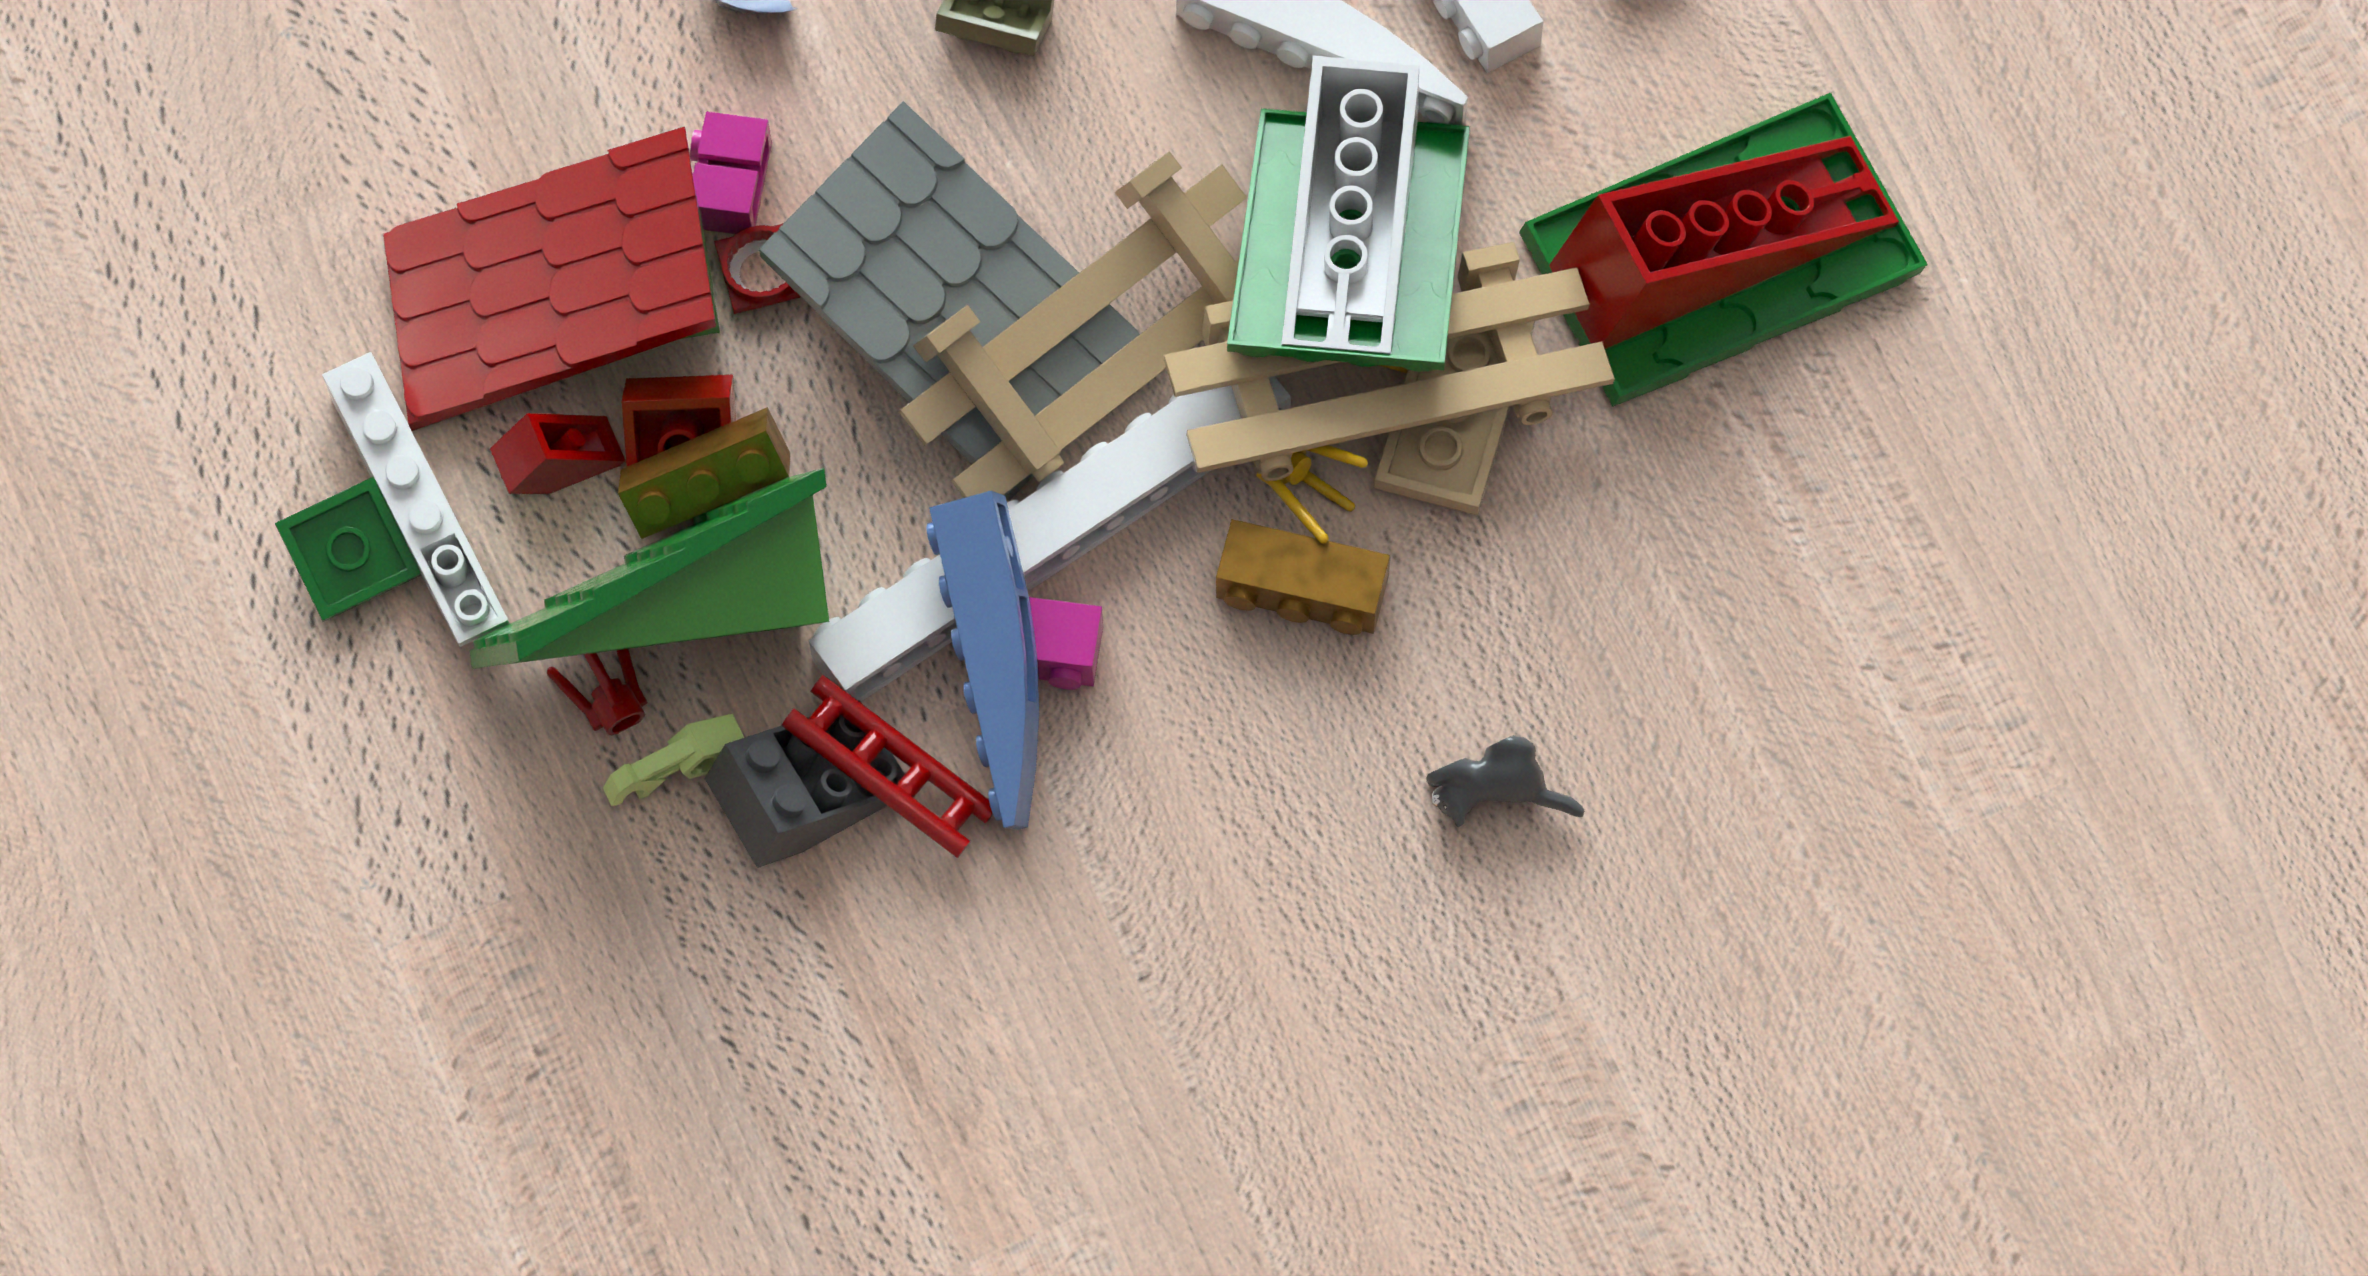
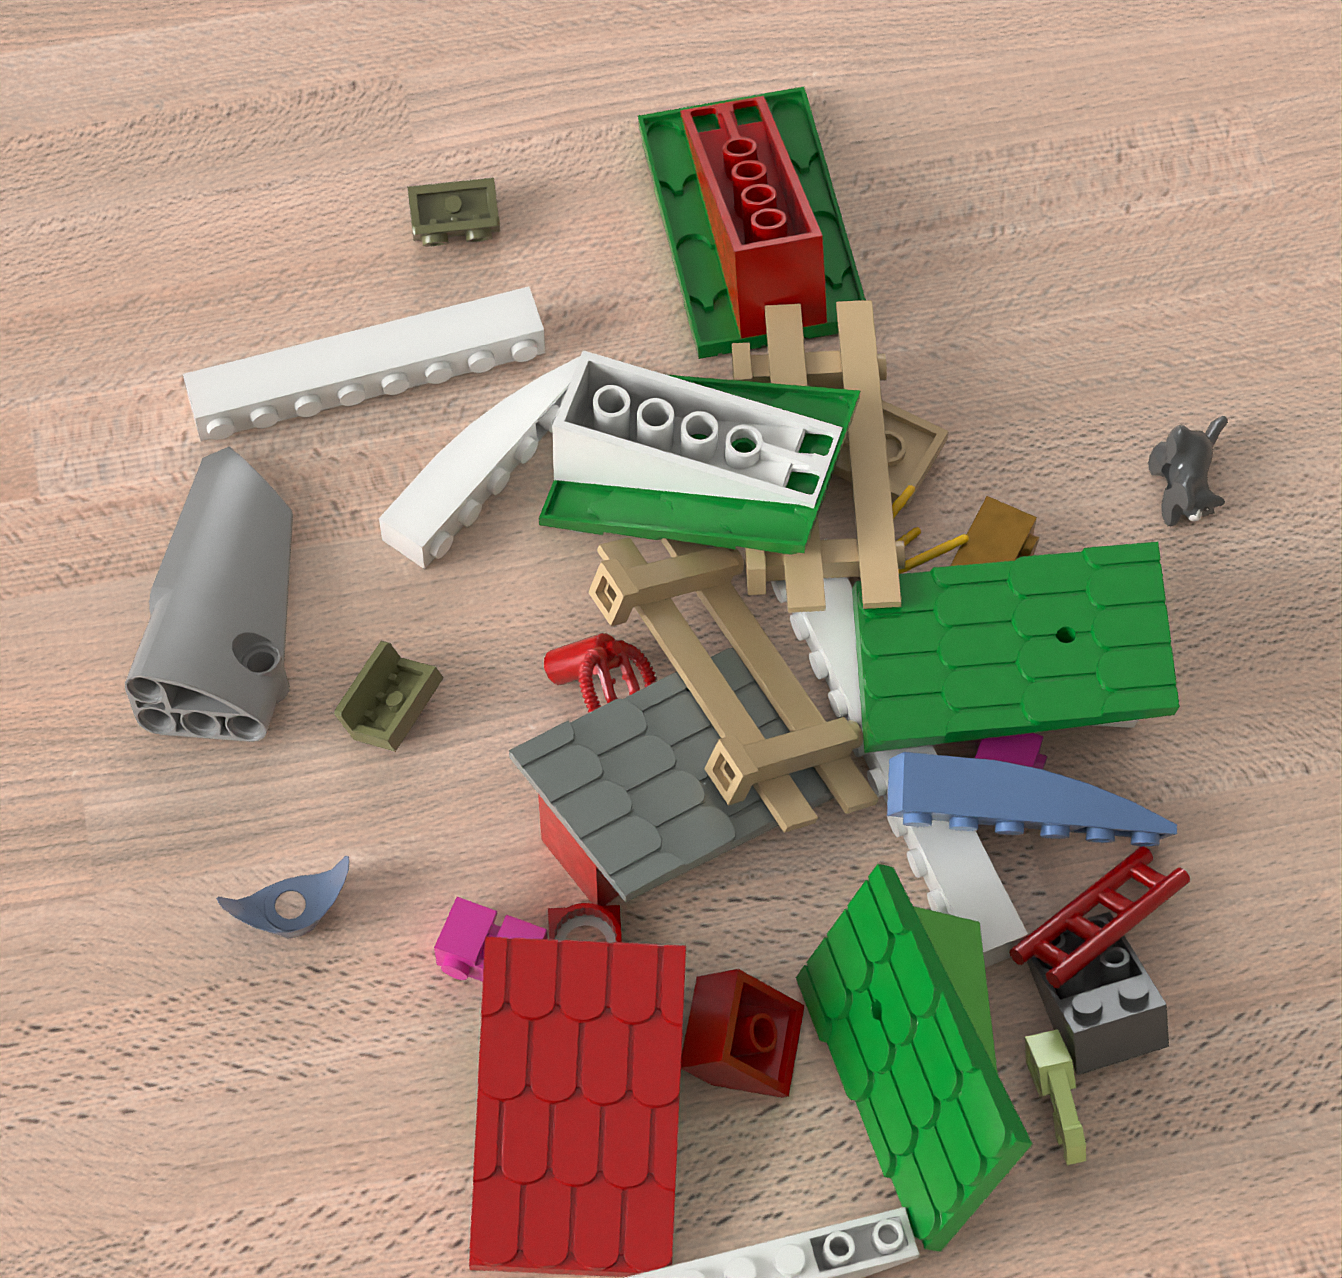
camera: 80 degrees left, 5 degrees down
(555, 452) = (735, 1147): red slope -> none
(704, 473) = (798, 1010): pearl gold brick -> none
(1079, 190) = (597, 656): none -> red piece
(1164, 562) = (1017, 648): none -> green piece

